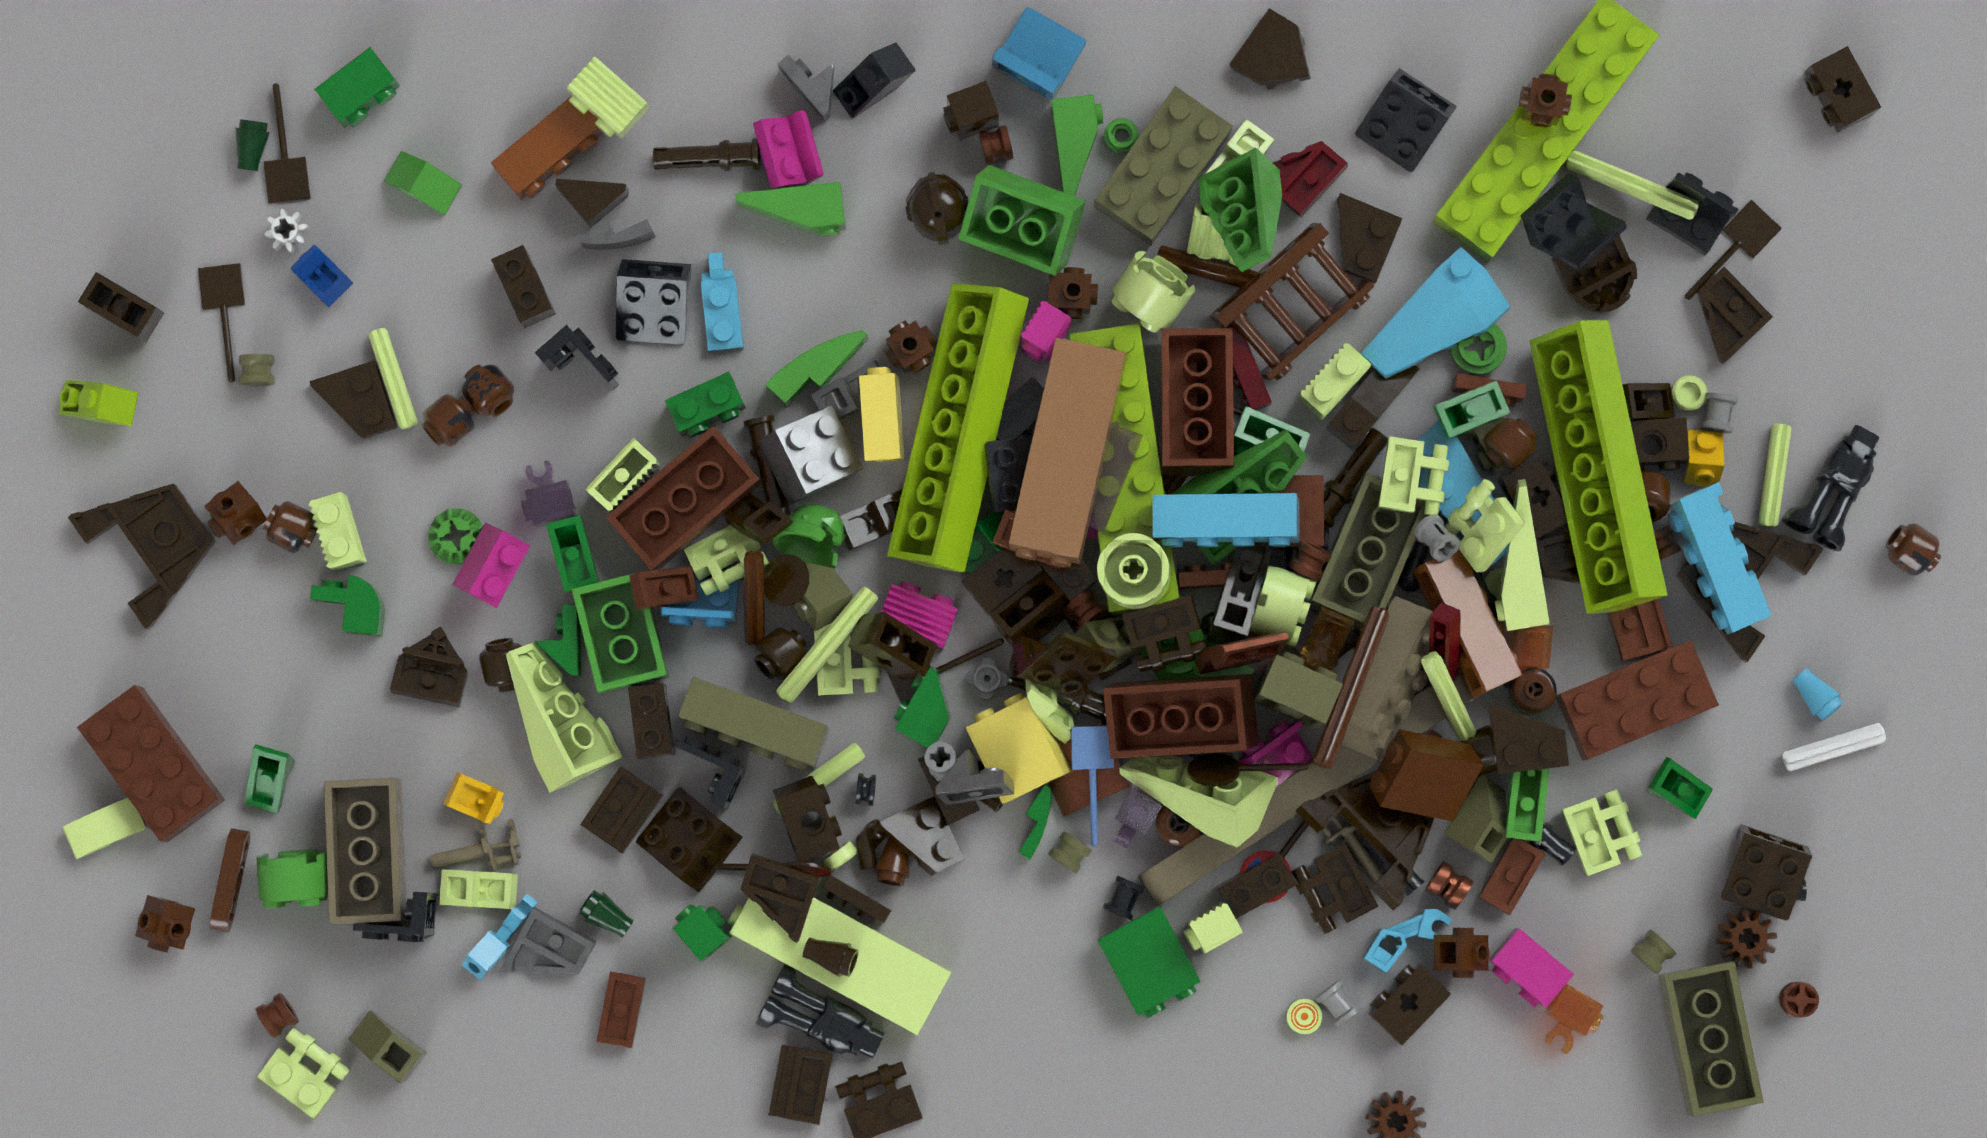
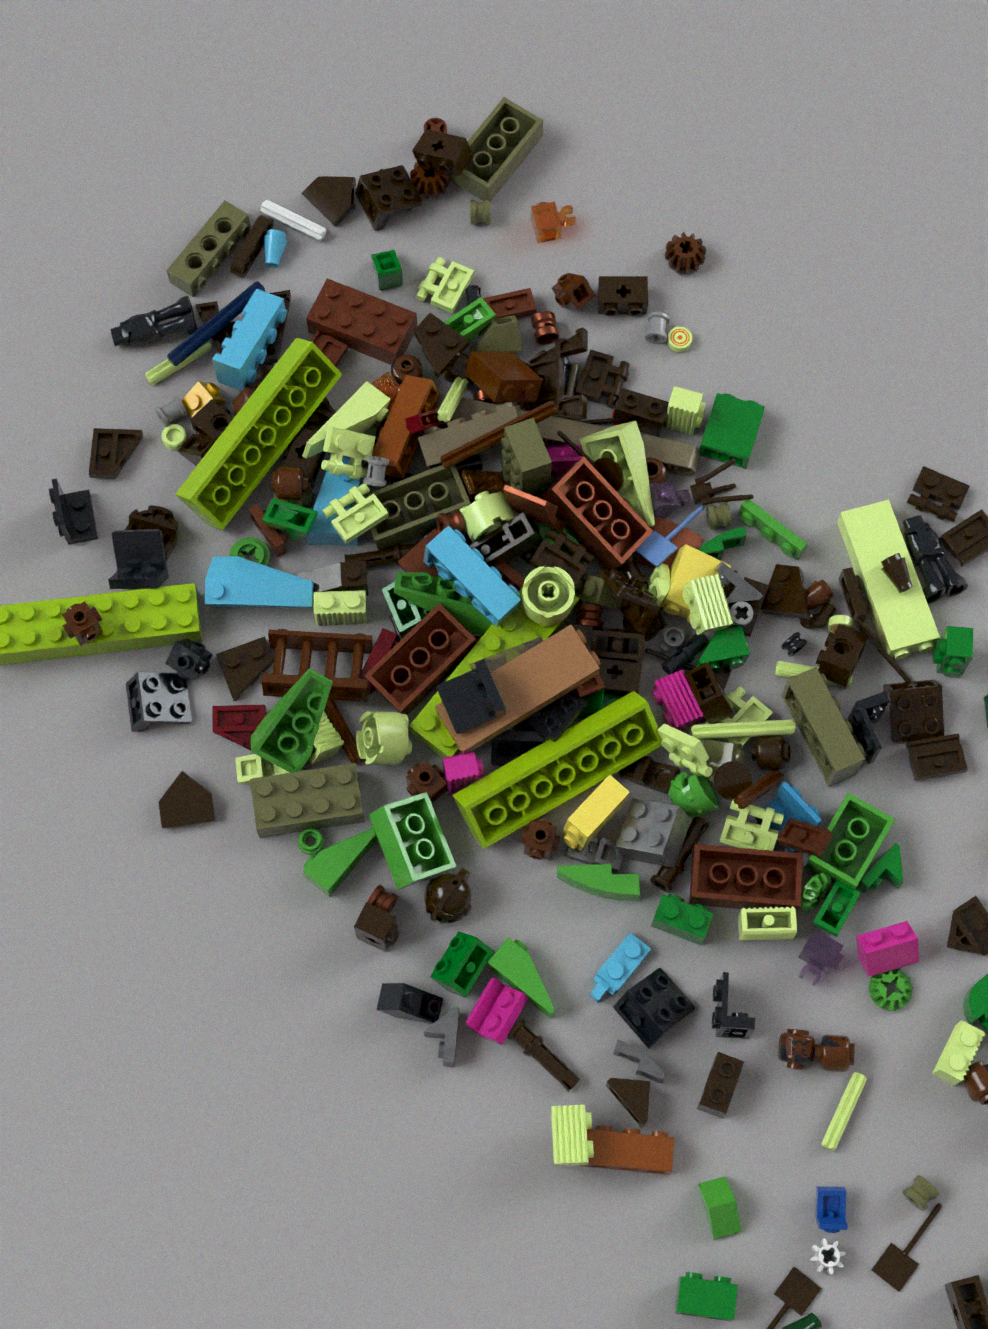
camera: 135 degrees left, 15 degrees down
(358, 398) = (875, 1120): dark brown wing -> none
(495, 664) = (930, 891): dark brown head -> none
(560, 730) = (931, 824): yellowish green wedge -> none
(608, 552) = (815, 891): none -> bright green gear
(651, 721) = (879, 780): dark brown brick -> none
(757, 519) = (715, 824): dark brown slope -> none
(781, 892) = (893, 627): dark brown wing -> none
(857, 559) = (685, 750): none -> yellowish green plate
(862, 158) = (461, 964): none -> green brick
(959, 671) = (685, 654): none -> black pin
(980, 730) = (707, 604): none -> yellowish green brick
(1003, 889) = (772, 529): none -> bright green plate
(1039, 53) = (306, 927): dark azure bracket -> none
(1095, 388) = (471, 698): none -> black bracket
(1110, 862) = (703, 492): none -> dark brown plant
(1123, 898) = (704, 469): black bush -> none
(1417, 925) = (612, 325): medium azure piece -> none
(1418, 184) = (189, 659): none -> black brick
(1529, 968) = (546, 257): dark pink brick -> none
(1632, 184) = (85, 550): yellowish green axle -> none
(1735, 971) = (442, 152): none -> dark brown brick
(1750, 230) = (63, 478): dark brown piece -> none
(1776, 545) = (212, 326): none -> dark blue axle
(1823, 813) = (332, 196): none -> dark brown slope
(1841, 672) = (251, 246): none -> dark brown beam
(1887, 605) = (225, 218): none -> olive brick
(1913, 549) = (153, 264): reddish brown head -> none

